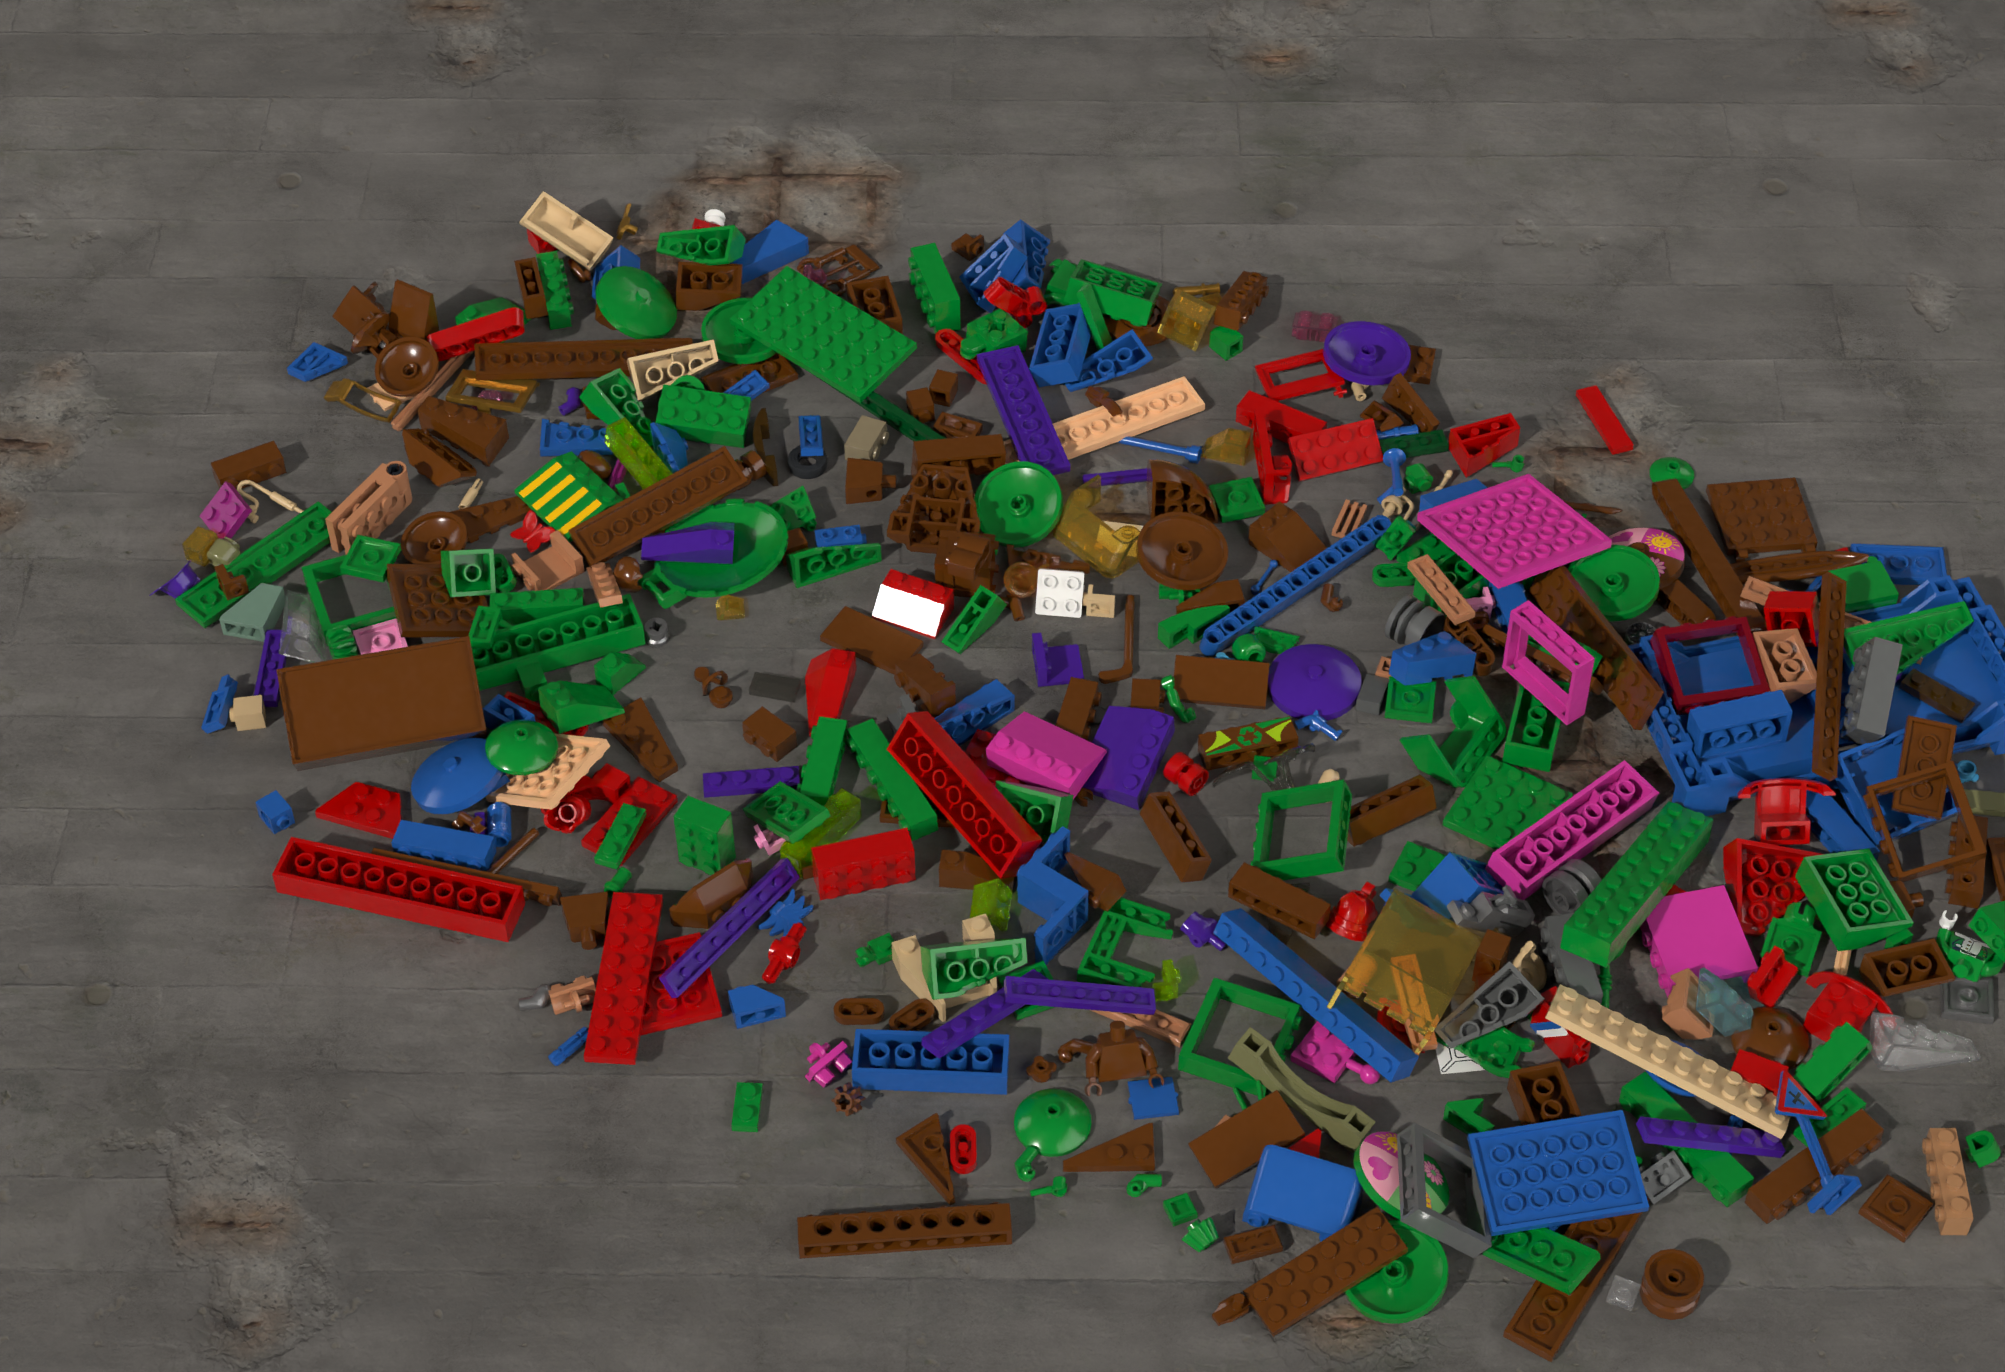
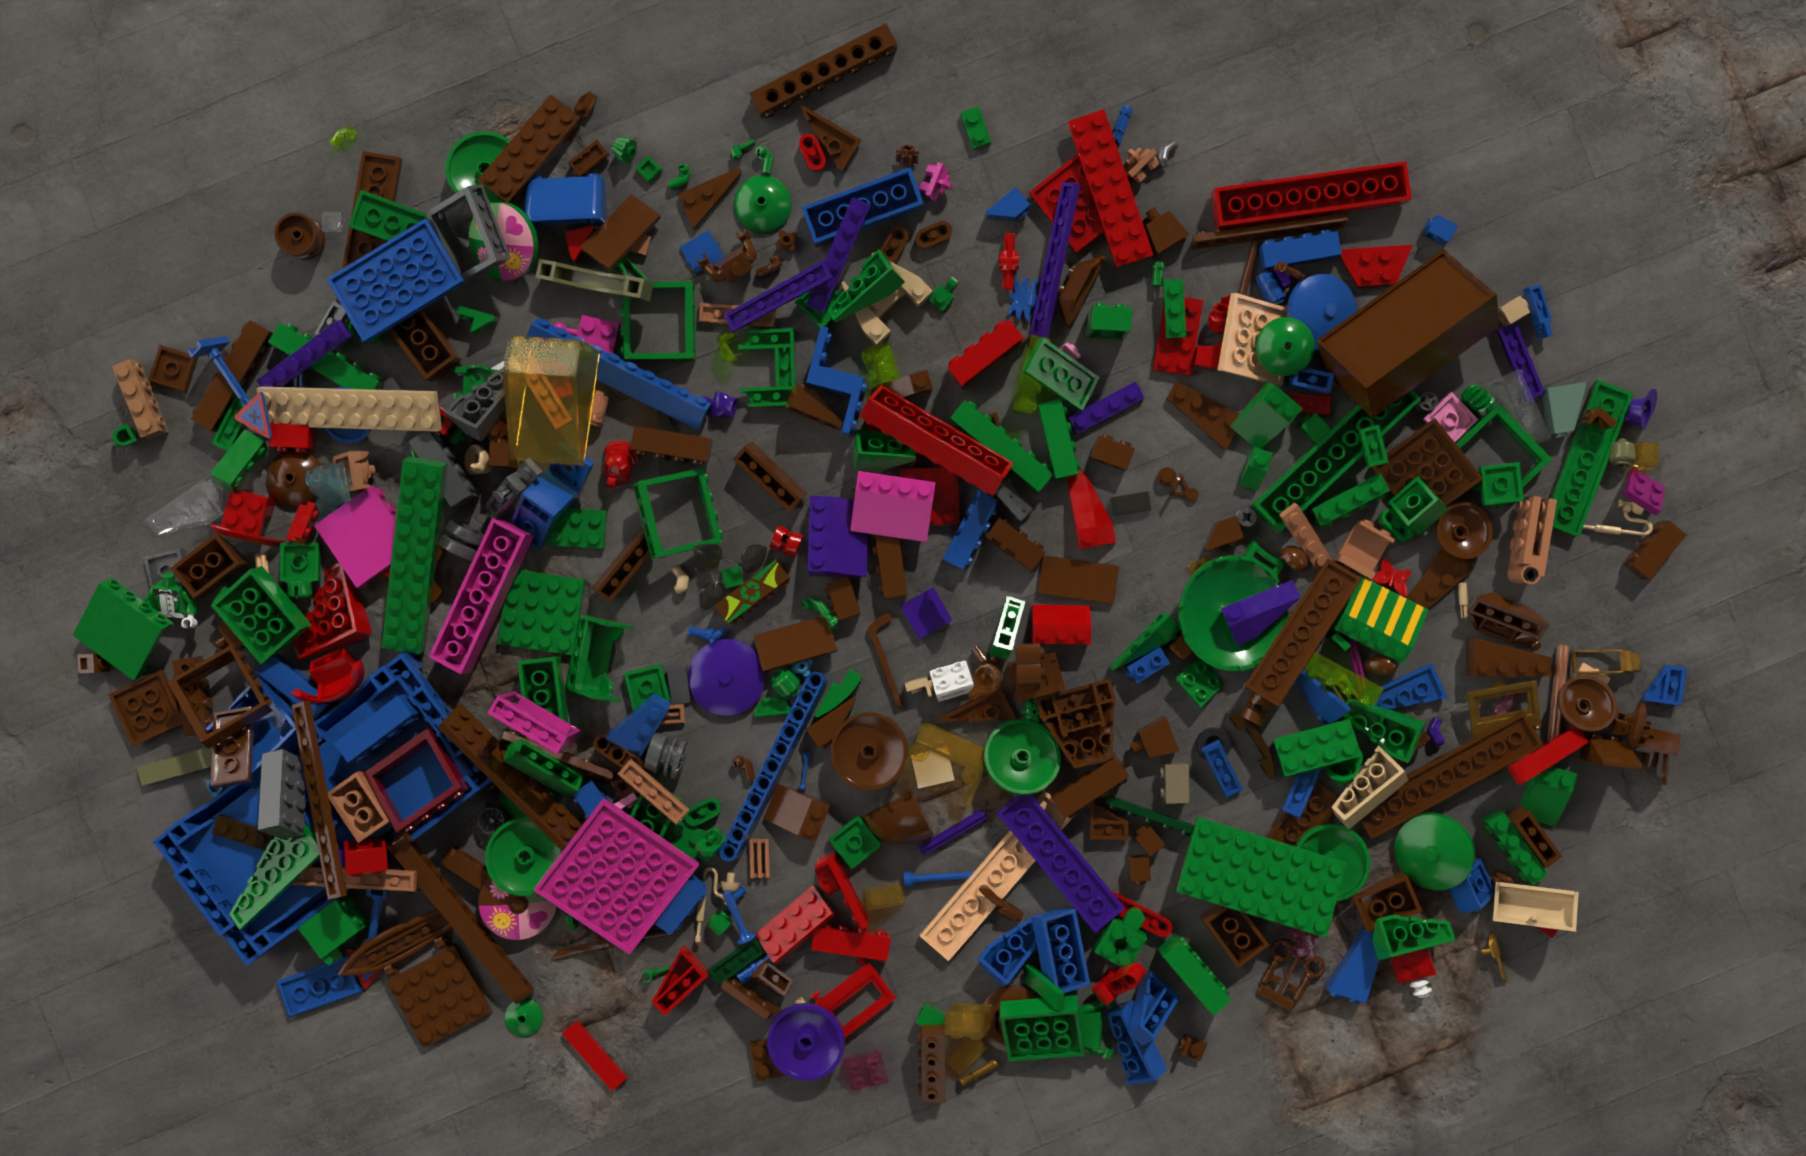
camera: 155 degrees right, 40 degrees up
(690, 624) = (1222, 533): none -> reddish brown slope

